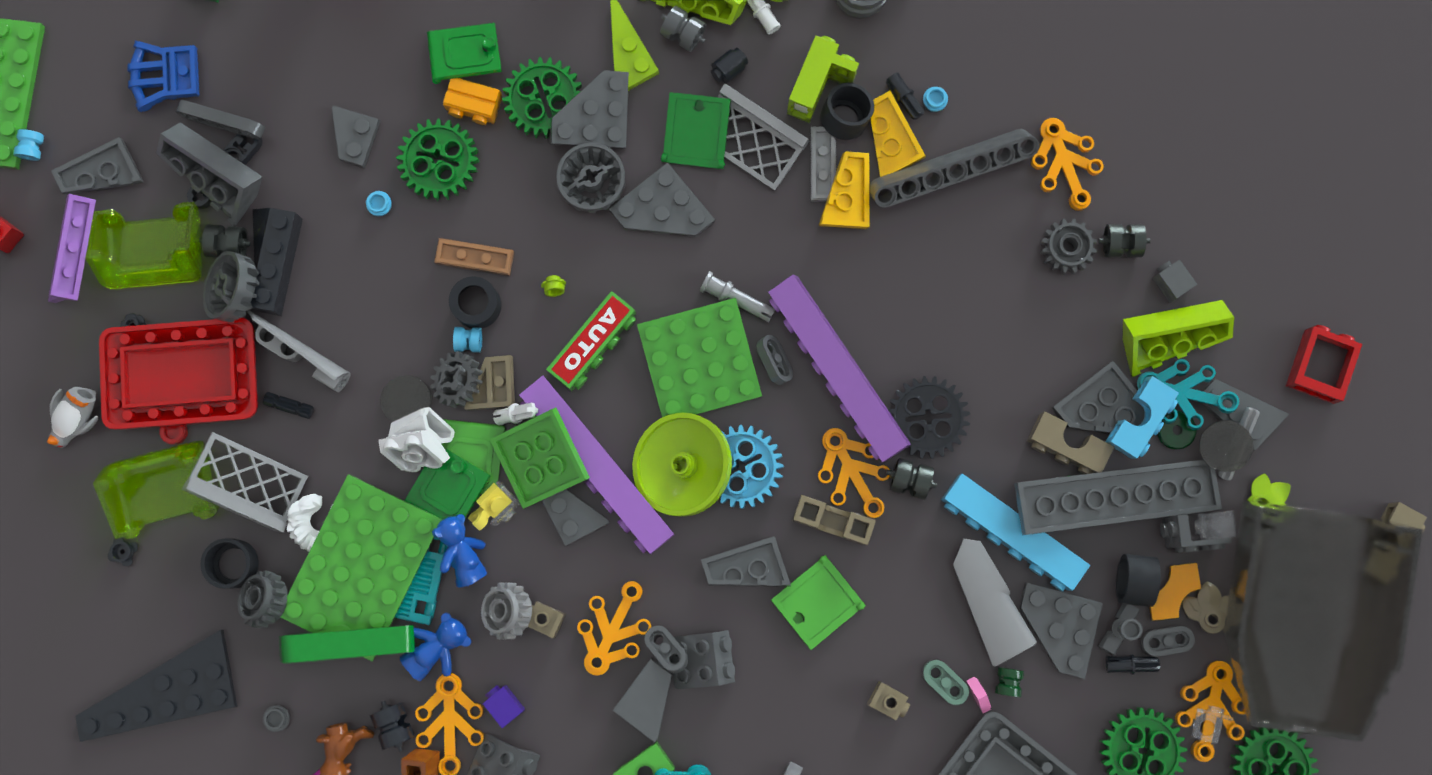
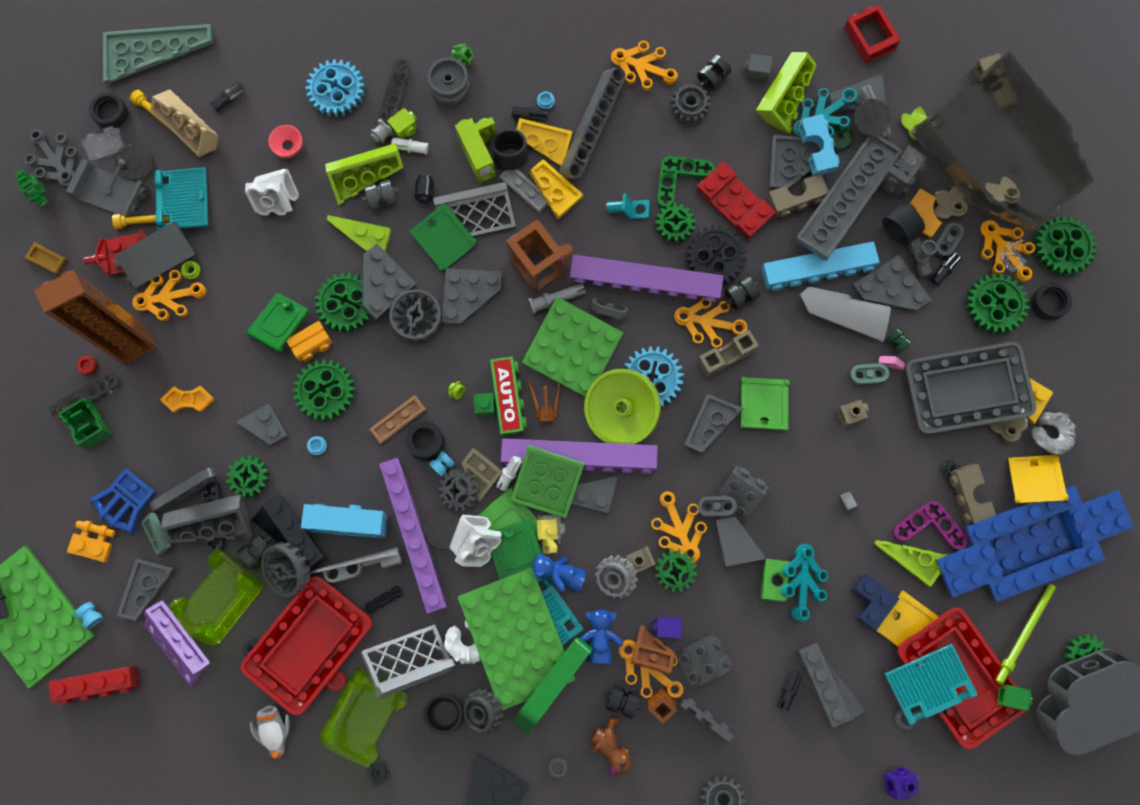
camera: 45 degrees left, 5 degrees down
(93, 85) = (88, 547): none -> light orange plate
(163, 121) = (155, 534): none -> sand green plate
(298, 160) = (248, 468): none -> green gear
(322, 48) = (196, 399): none -> light orange tile
(326, 299) = (345, 521): none -> medium azure brick
(372, 378) = (413, 536): none -> medium lavender brick
(463, 712) = (651, 652): none -> dark orange wing
(556, 665) = (667, 572): none -> green gear
(562, 327) = (484, 405): none -> green brick
(610, 394) = (545, 414): none -> dark orange plant
(760, 217) = (526, 242): none -> dark orange piece
(898, 283) = (629, 207): none -> teal bracket
(932, 352) = (682, 221): none -> green gear
(975, 296) = (673, 173): none -> green beam
(1005, 385) = (735, 201): none -> red piece
(1268, 652) = (1005, 192): none -> dark tan plate

